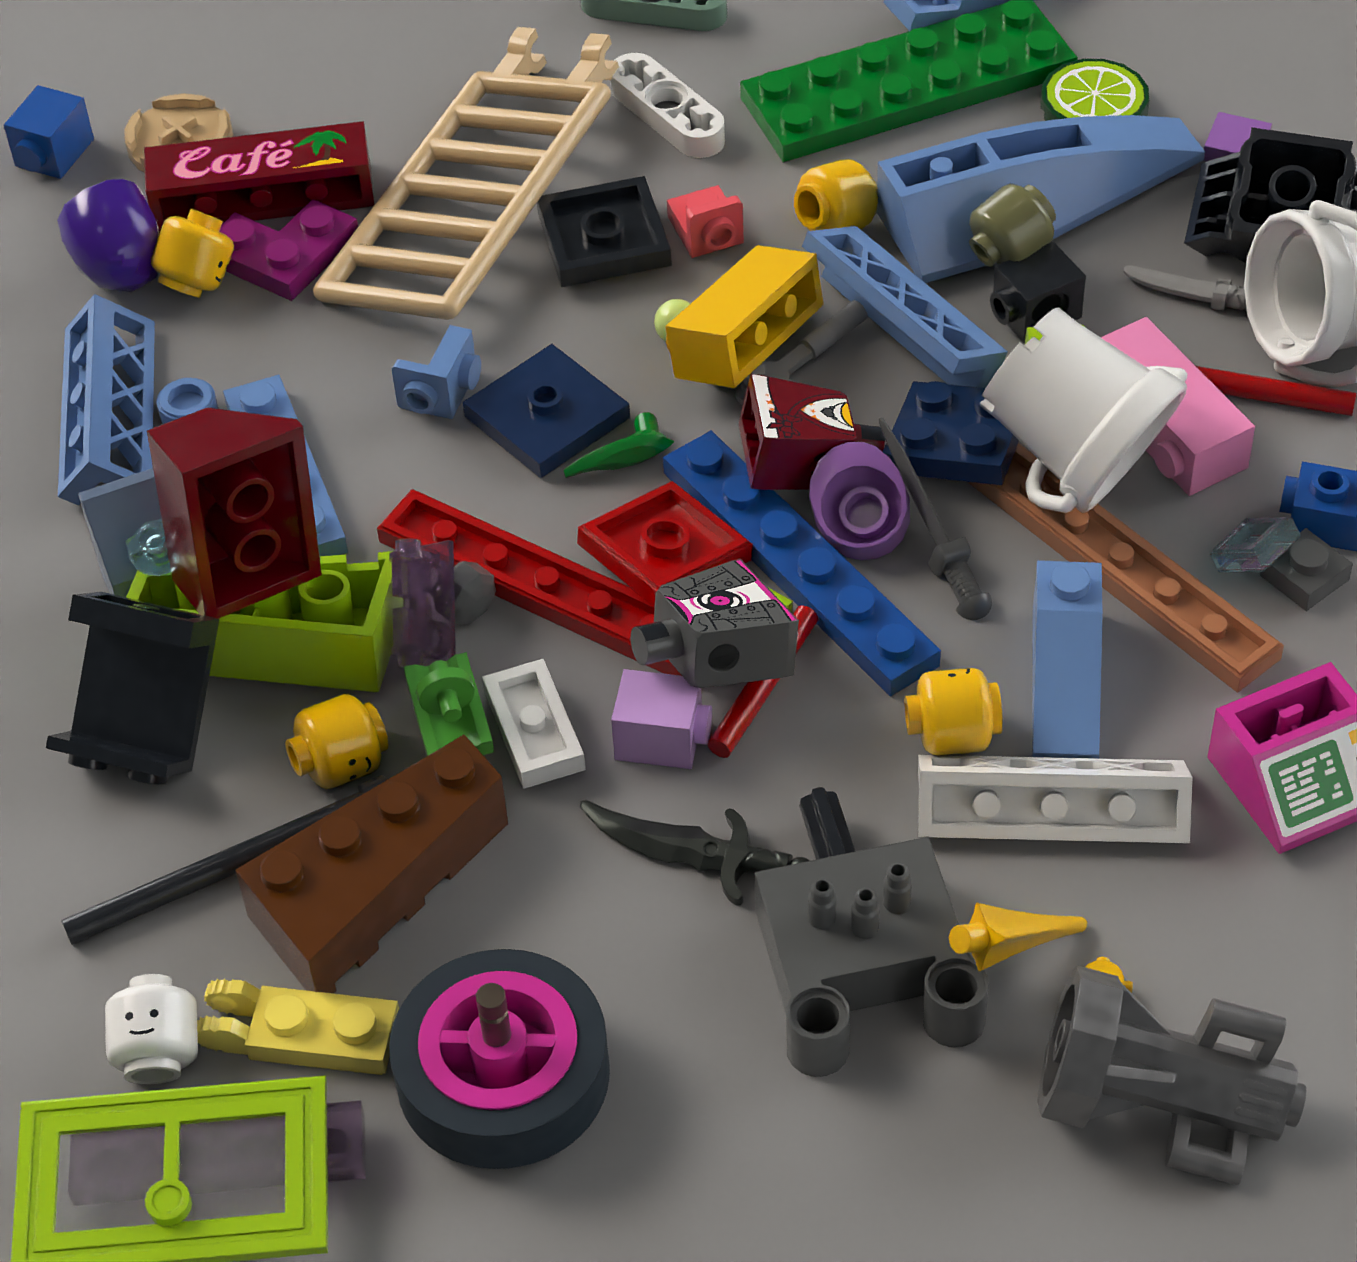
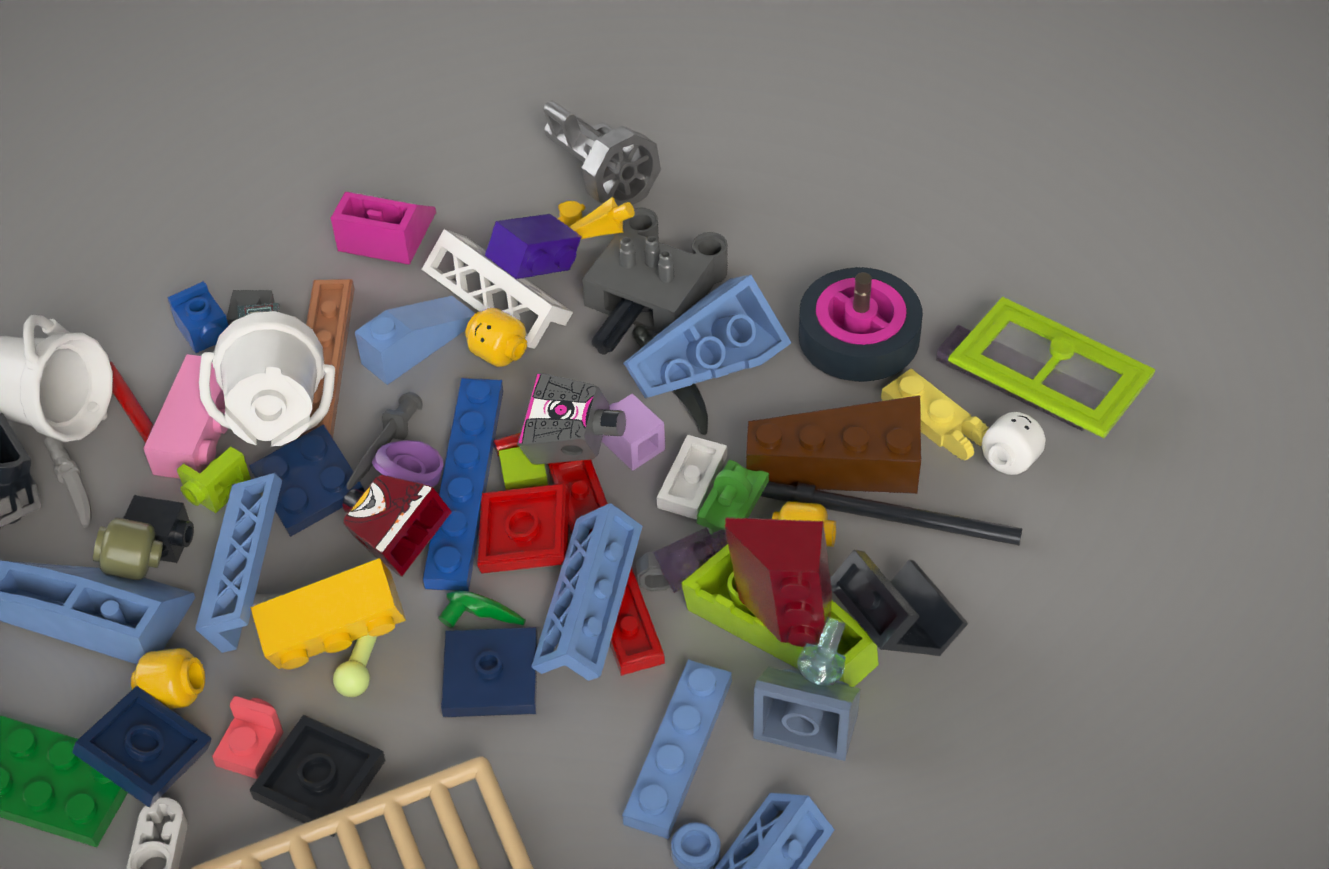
camera: 140 degrees left, 0 degrees up
(443, 383) = (526, 725): medium blue bracket -> none
(506, 507) = (591, 592): none -> medium blue fence
(691, 913) = (713, 338): none -> medium blue wedge
(775, 134) = (142, 746): none -> dark blue plate
(1050, 842) = (533, 246): none -> dark purple brick

